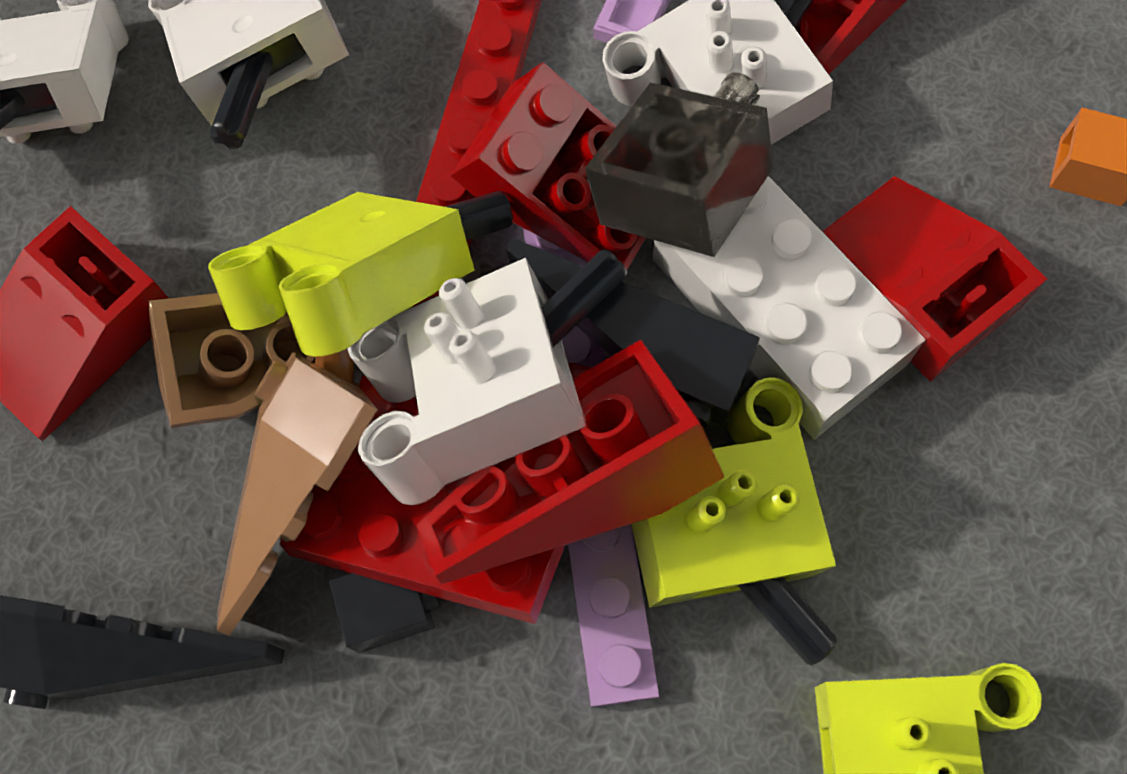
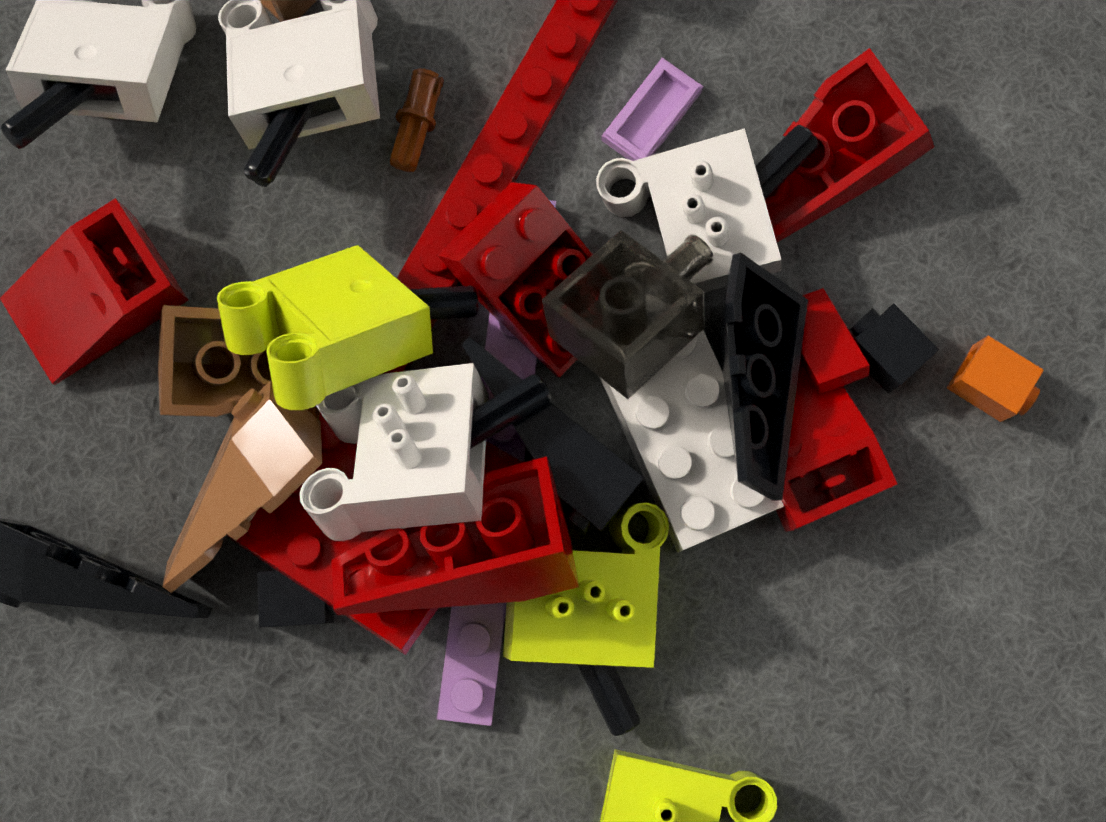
camera: 10 degrees right, 10 degrees up
(388, 61) = (416, 118): none -> dark orange axle
(843, 189) = (760, 368): none -> black wedge
(901, 165) = (828, 347): none -> red tile
(976, 153) = (892, 346): none -> black brick

